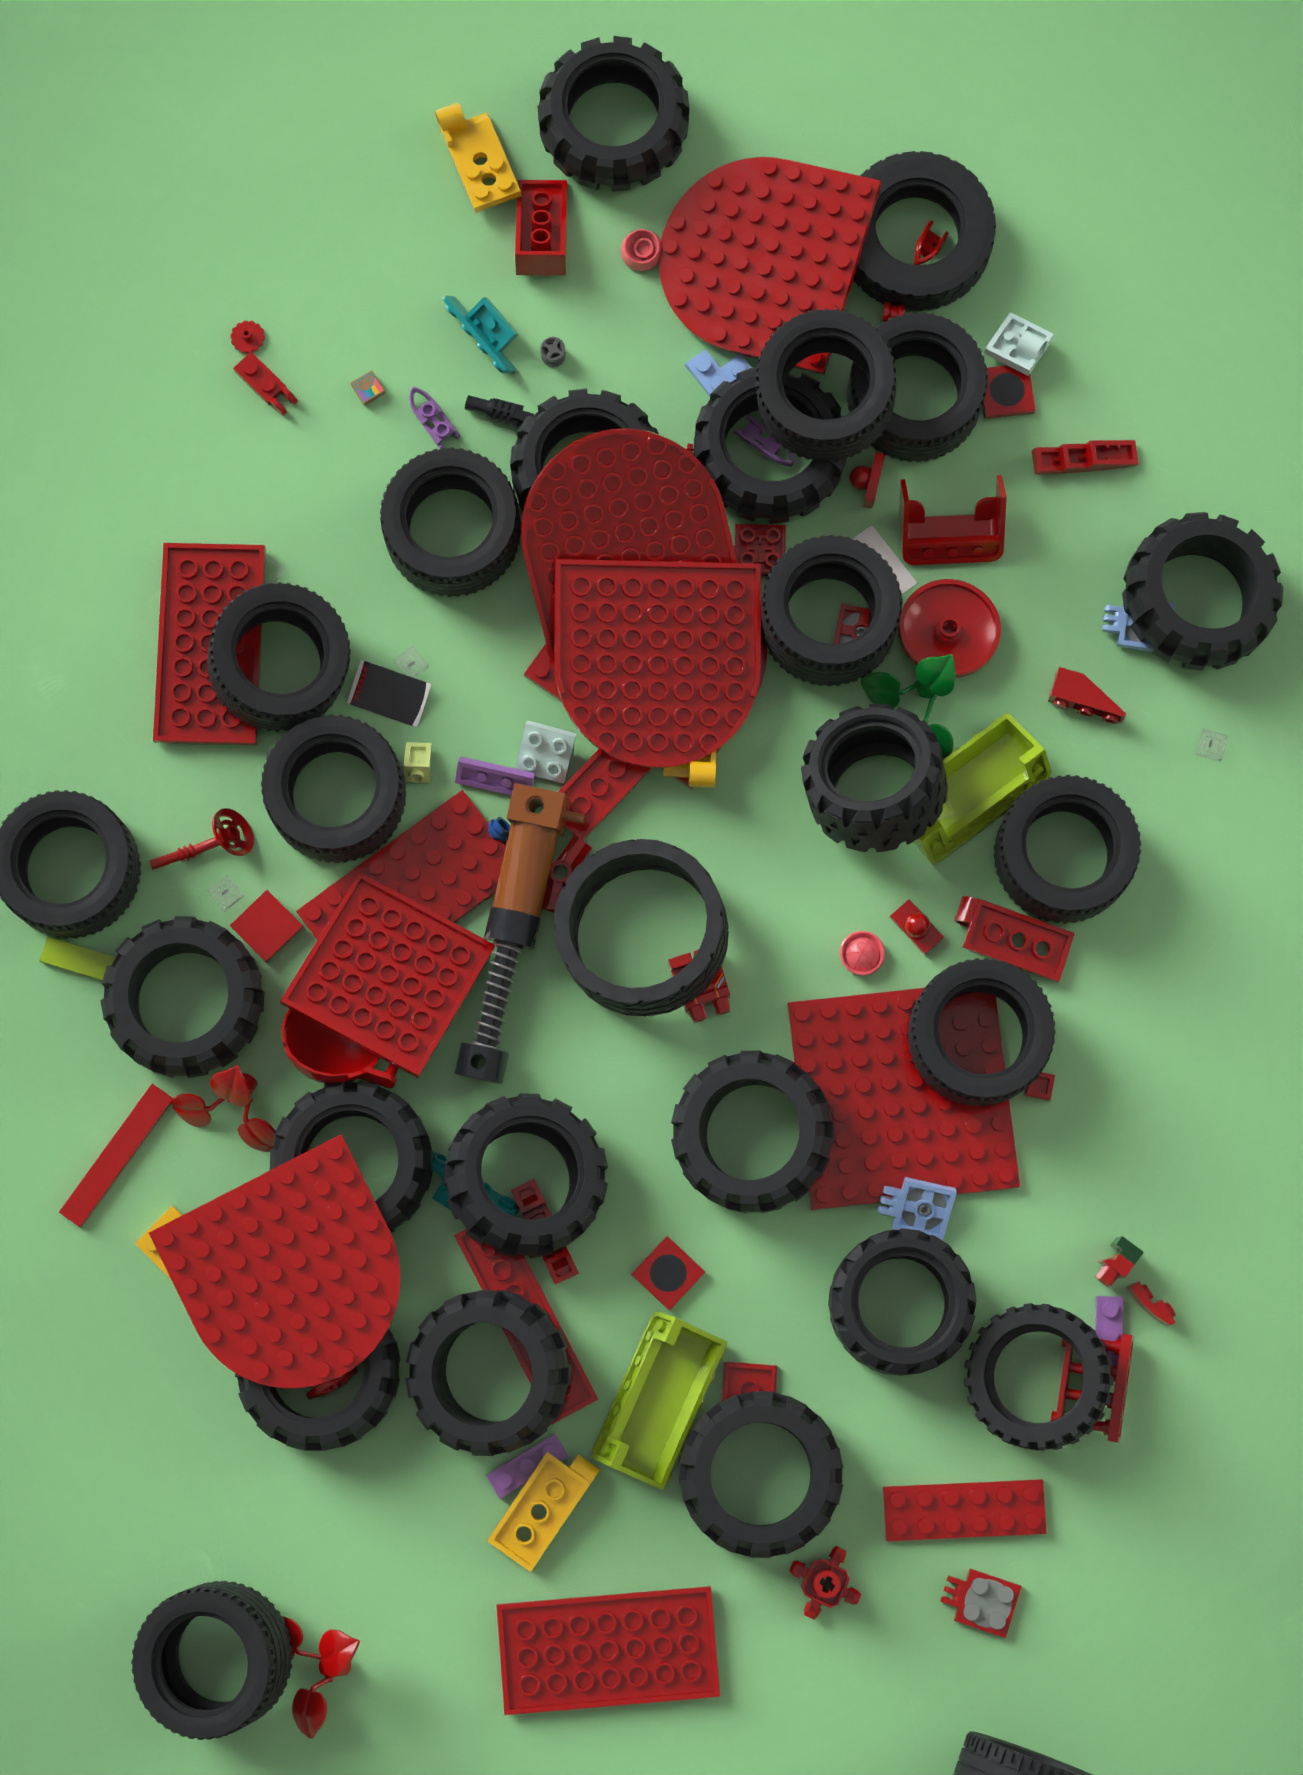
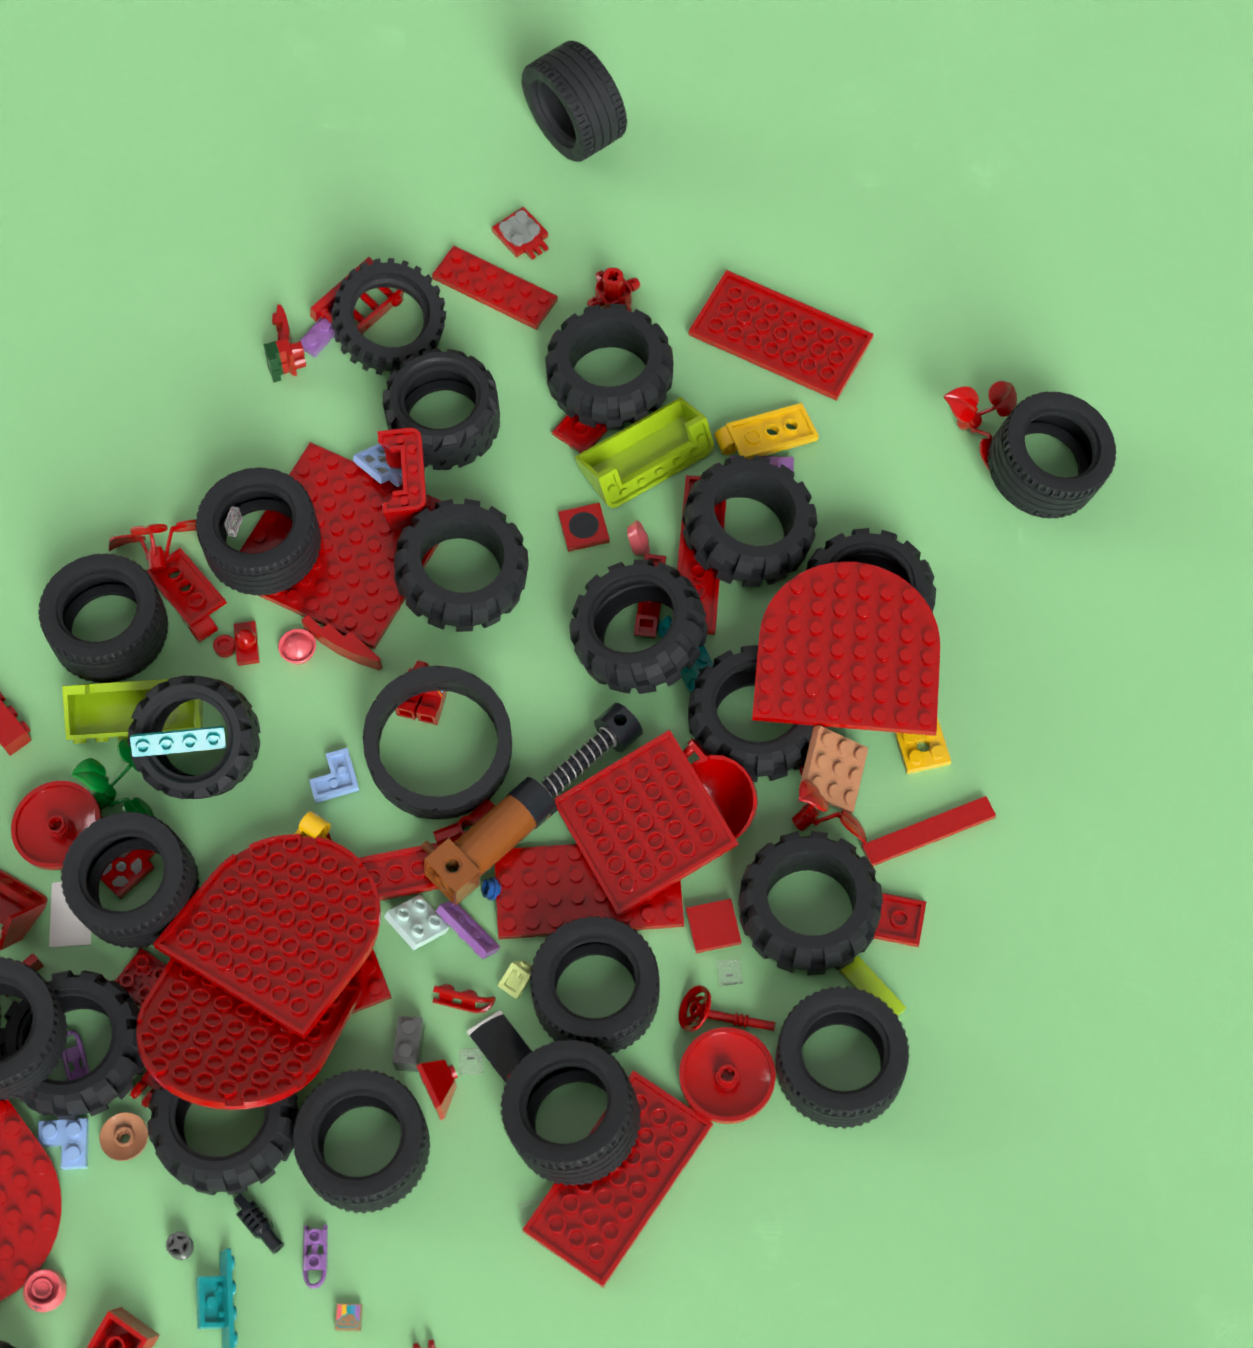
camera: 145 degrees left, 15 degrees down
(92, 1048) = (901, 920): none -> red tile
(165, 789) = (727, 1075): none -> red dish
(238, 1146) = (835, 767): none -> nougat plate
(422, 617) = (439, 1083): none -> red slope
(451, 713) = (468, 997): none -> red piece
(475, 639) = (408, 1043): none -> dark grey brick
(597, 1288) = (638, 539): none -> coral hat
(671, 394) = (116, 1128): none -> nougat dish
(718, 845) = (339, 782): none -> light blue plate
(809, 984) = (347, 646): none -> red slope
(846, 1160) = (405, 452): none -> red windscreen
(880, 754) = (177, 741): none -> bracket
(936, 910) = (224, 646): none -> red tile
(996, 1002) = (233, 521): none -> clear tile
(1075, 953) = (156, 555): none -> red plant

